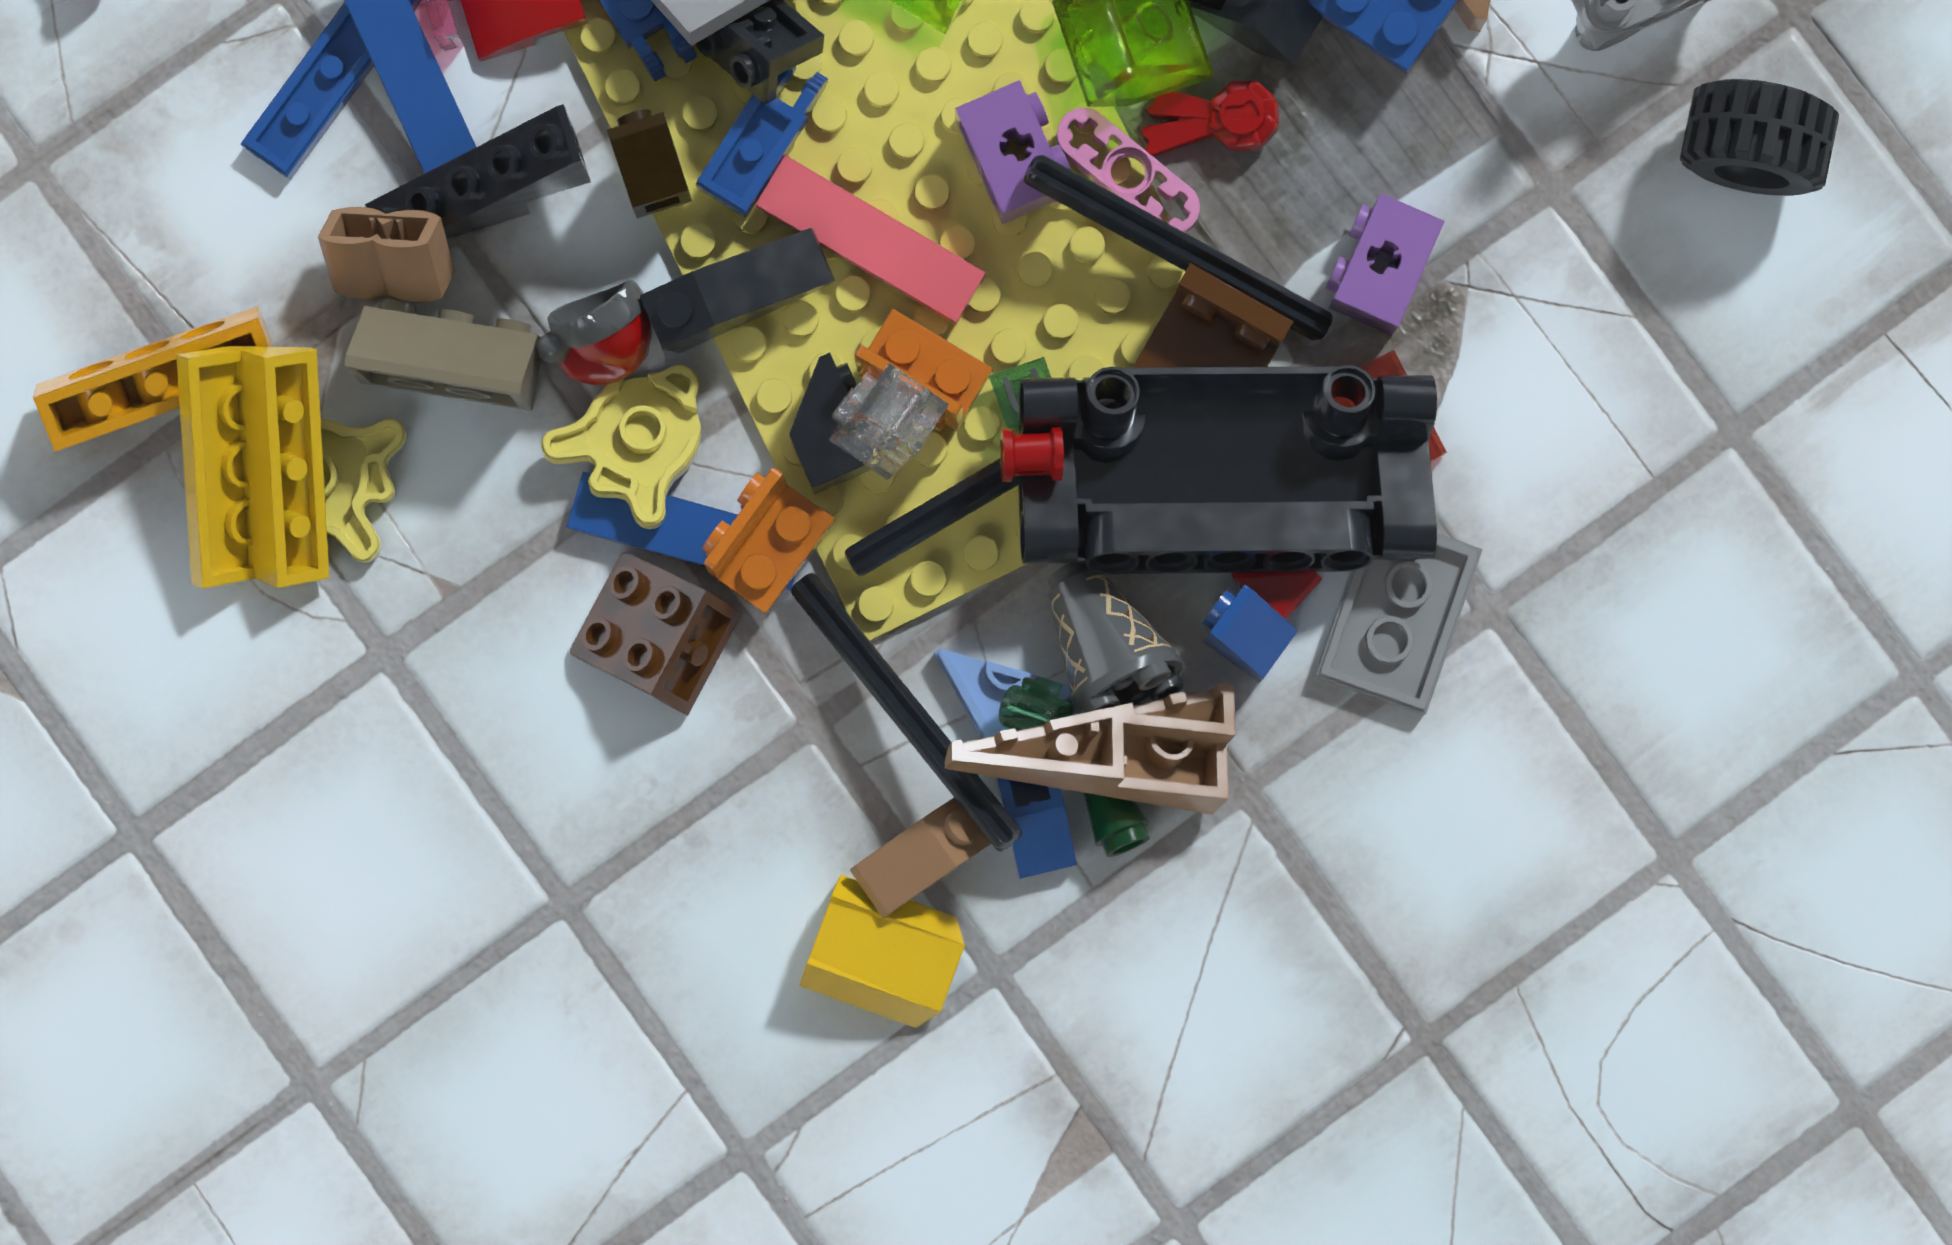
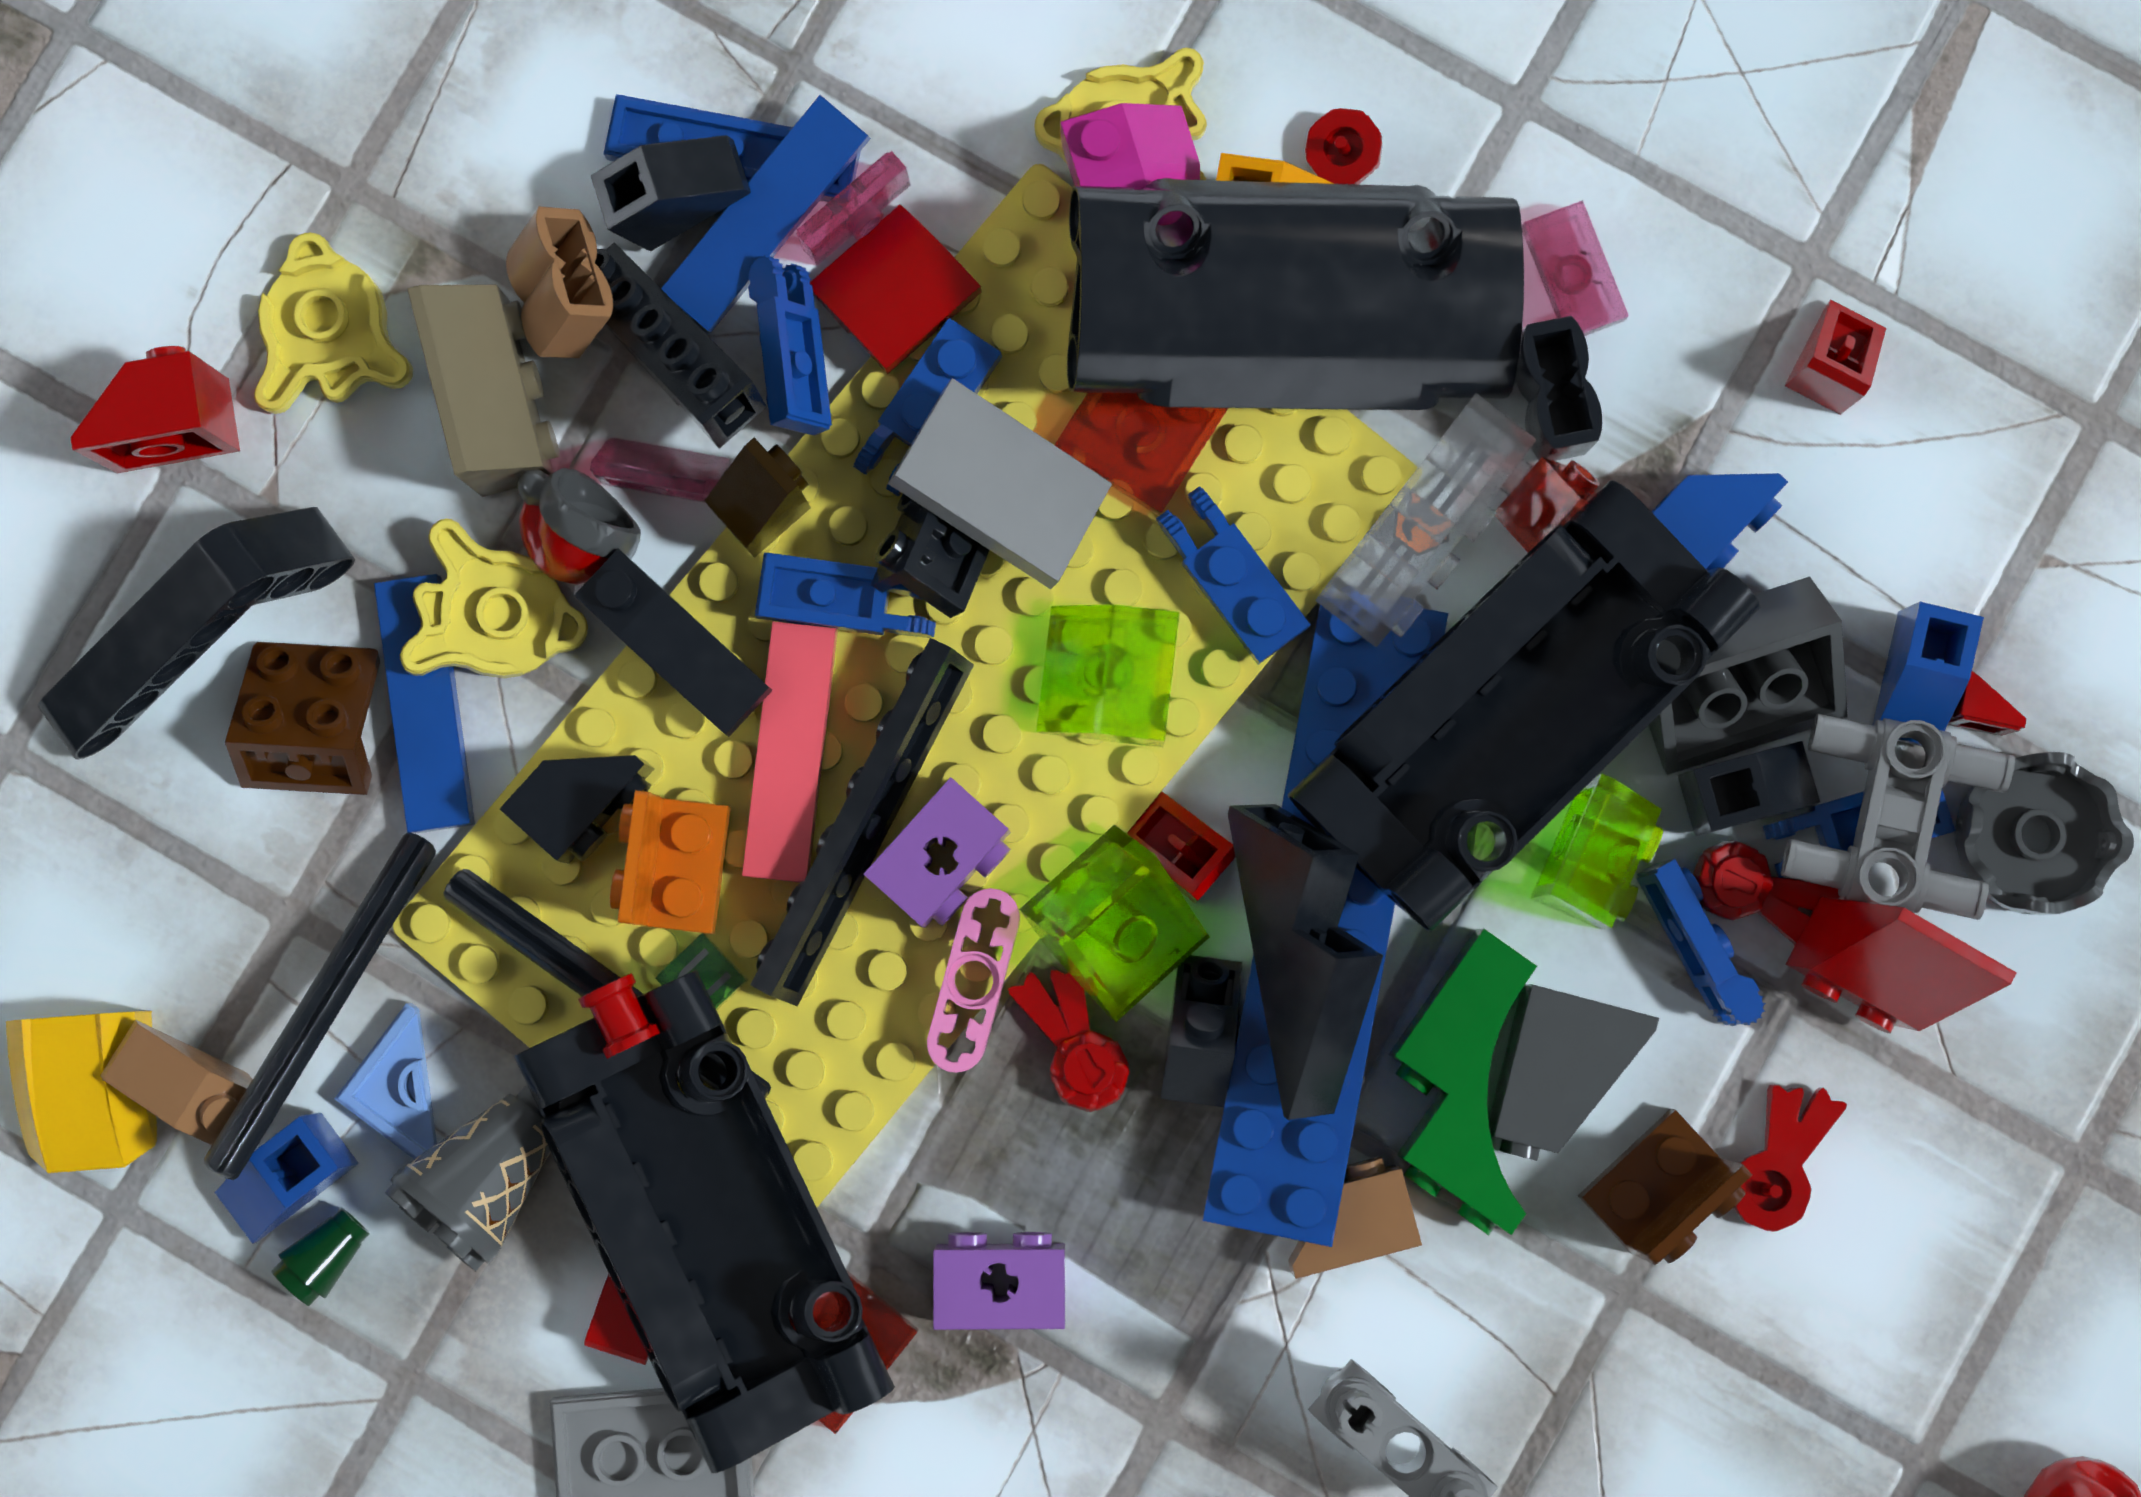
camera: 75 degrees right, 0 degrees up
(135, 382) = (339, 118): light orange brick -> none
(253, 465) = (288, 248): yellow slope -> none
(345, 631) = (159, 414): none -> red slope
(349, 126) = (669, 188): none -> black slope
(526, 88) = (790, 346): none -> blue hinge
(535, 693) = (185, 616): none -> black beam
(582, 246) = (658, 469): none -> clear pink slope
(766, 540) = (432, 790): orange bracket -> none
(886, 420) = (581, 854): clear brick -> none
(942, 185) = (855, 837): none -> black plate
(1032, 704) = (375, 1135): clear green gear -> none
(1143, 753) = (382, 1267): medium nougat wedge -> none
(1171, 243) = (913, 1066): black axle -> none
(1213, 327) = (837, 1139): reddish brown bracket -> none
(1248, 632) = (553, 1312): blue slope -> none

